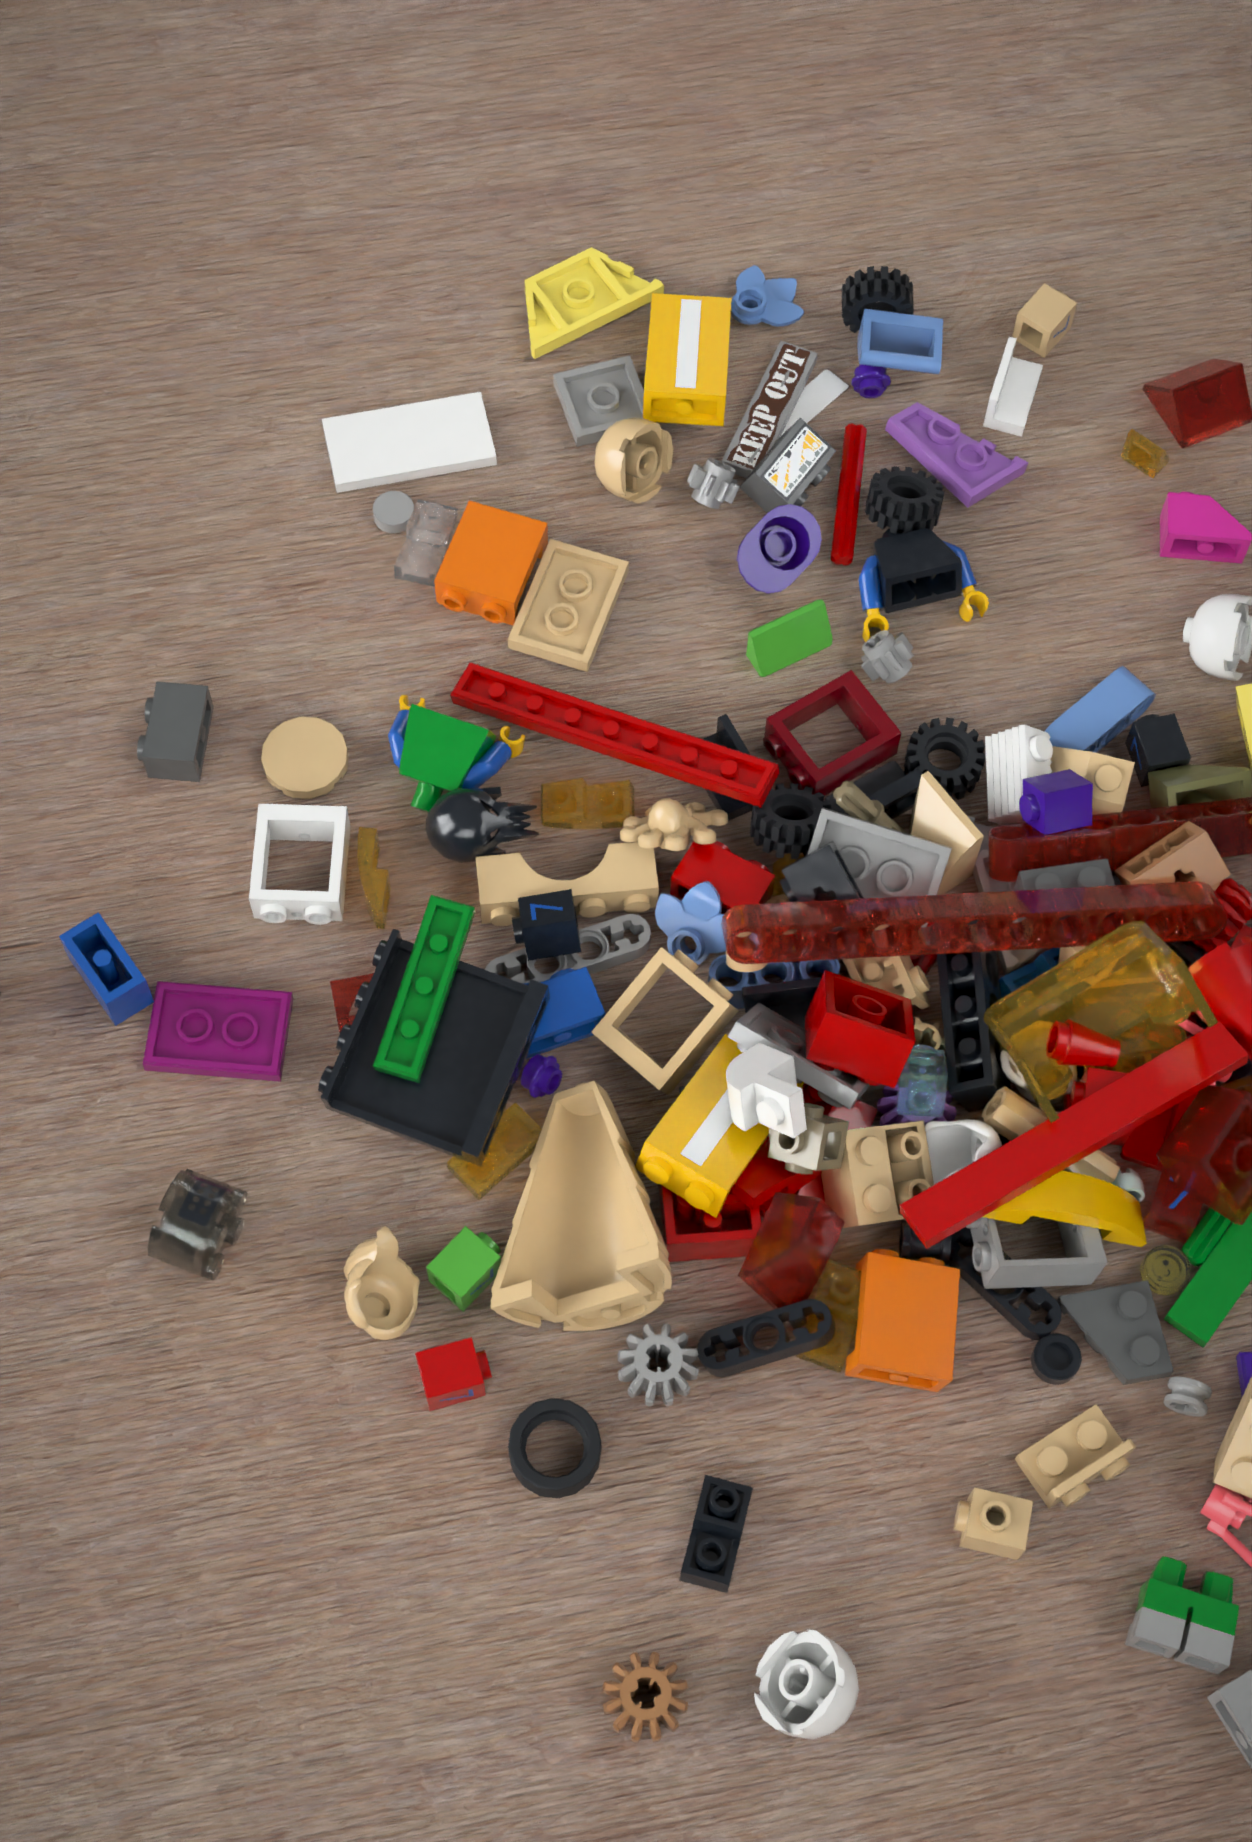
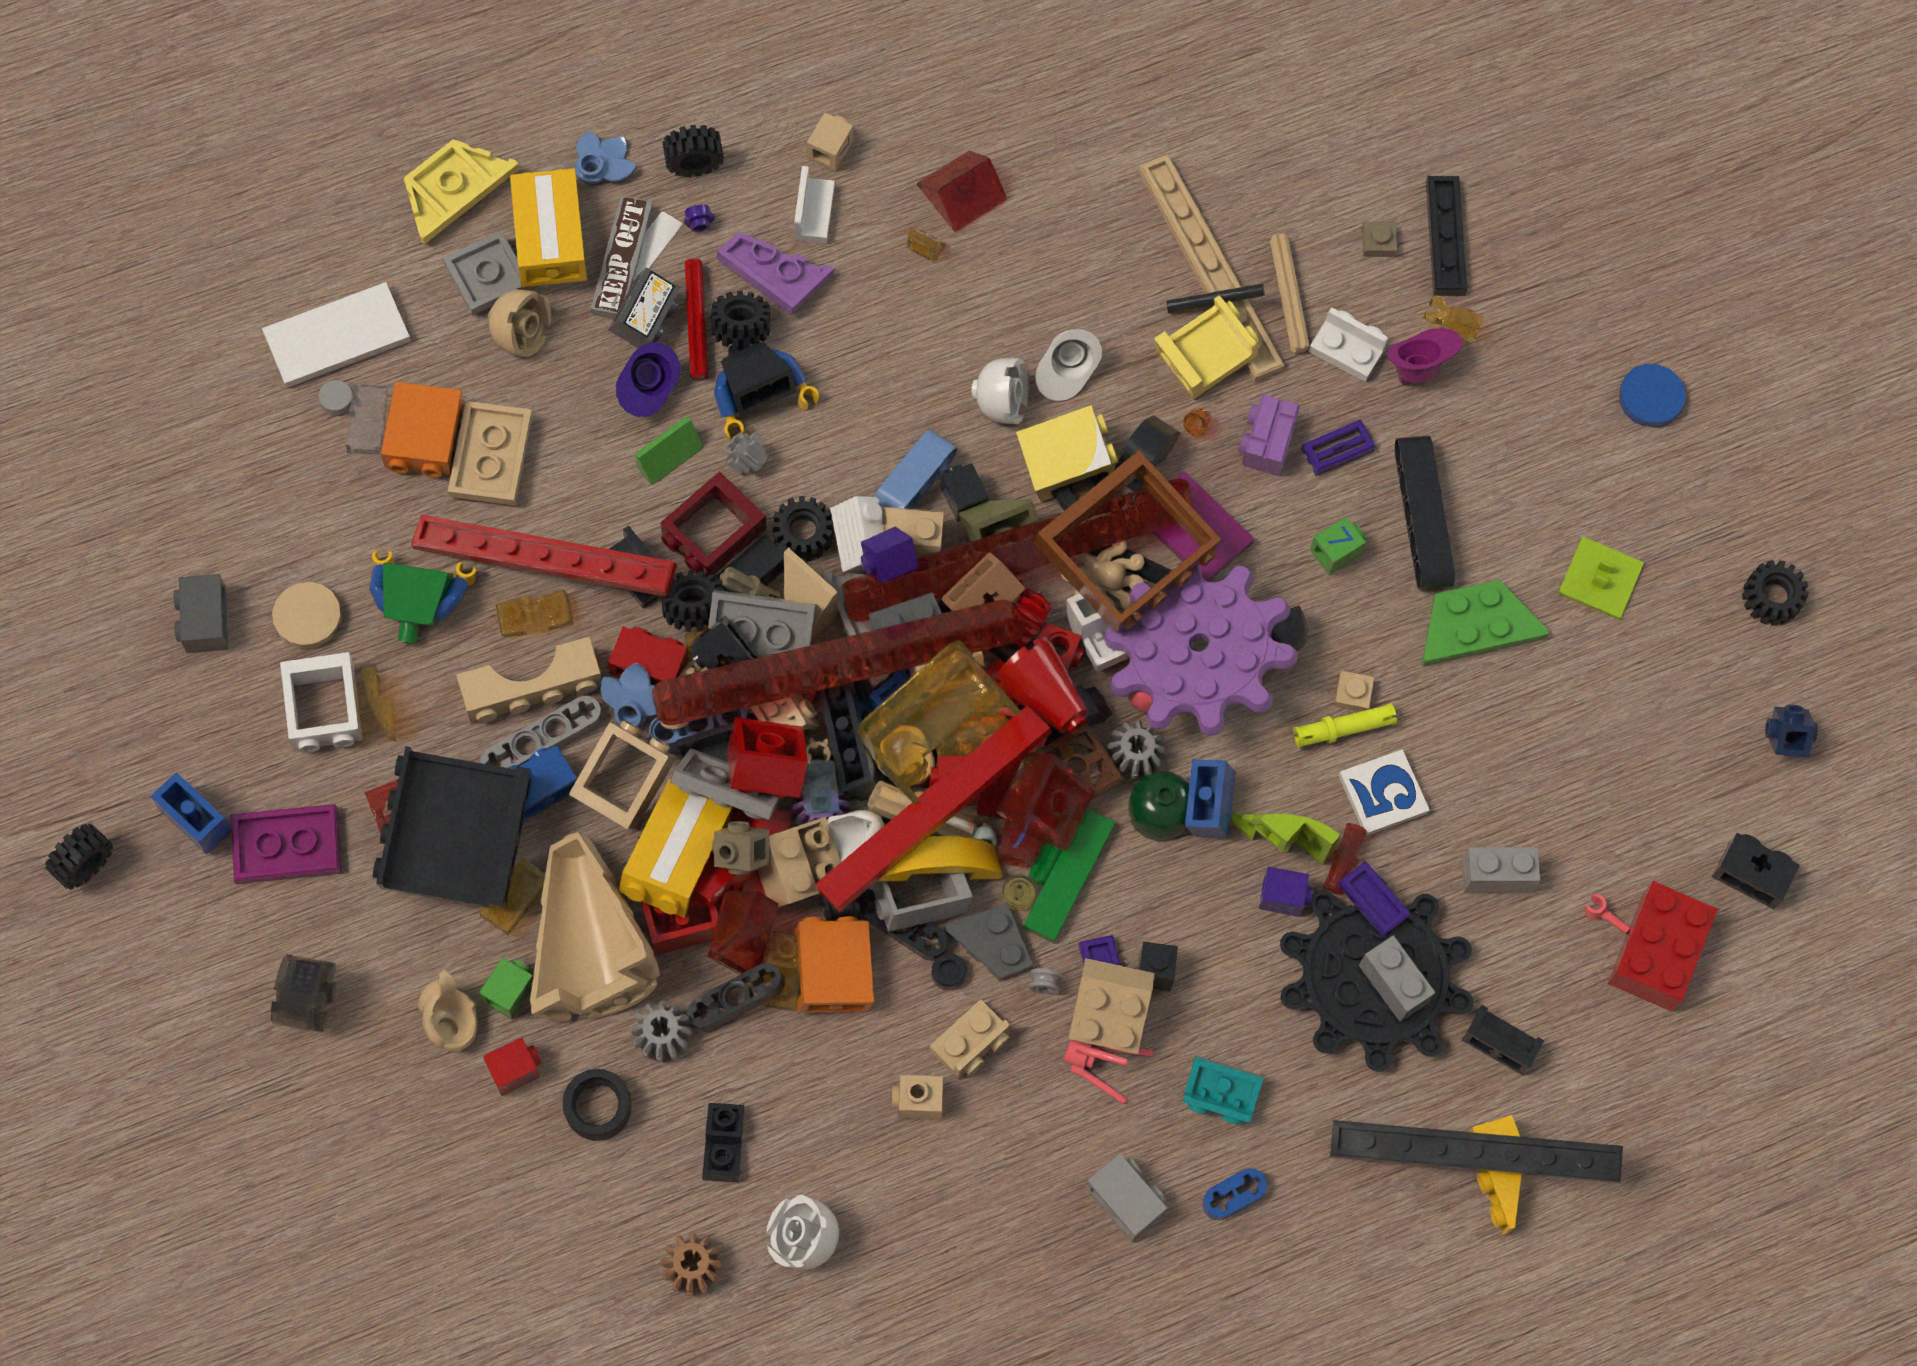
camera: 15 degrees left, 5 degrees up
(424, 988) = (437, 786): green tile -> none
(462, 823) = (442, 653): black helmet -> none
(541, 1076) = (537, 833): dark purple plate -> none
(547, 925) = (521, 718): black brick -> none
(671, 824) = (601, 621): tan animal -> none
(713, 483) = (587, 330): light grey gear -> none
(765, 1091) = (703, 819): white brick -> none
(900, 341) = (717, 174): medium blue tile -> none
(1081, 1046) = (930, 741): red cone -> none
(1185, 1622) = (1077, 1137): hips -> none
(1201, 530) = (975, 303): dark pink slope -> none

